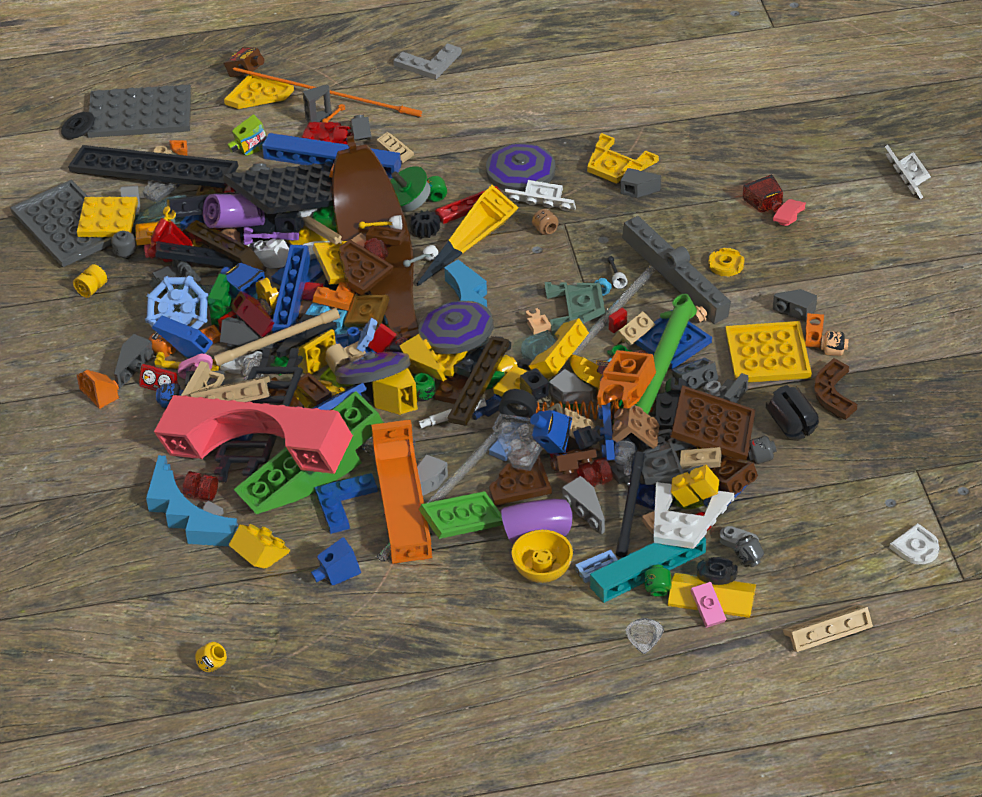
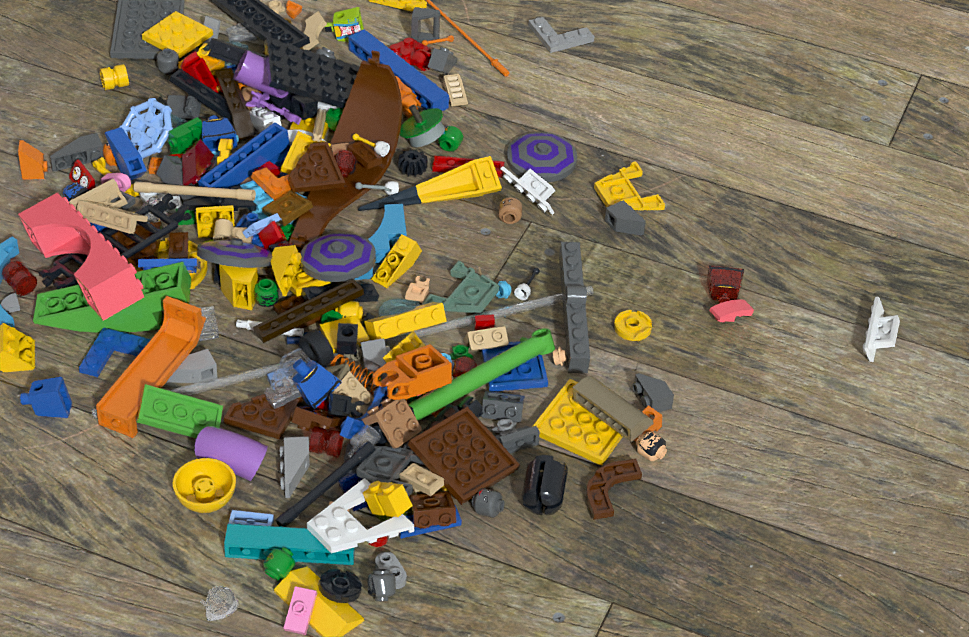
camera: 30 degrees right, 0 degrees up
(220, 148) = (314, 25): none -> tan tile
(499, 306) = (397, 262): none -> yellow slope
(784, 329) = (611, 408): none -> dark tan brick

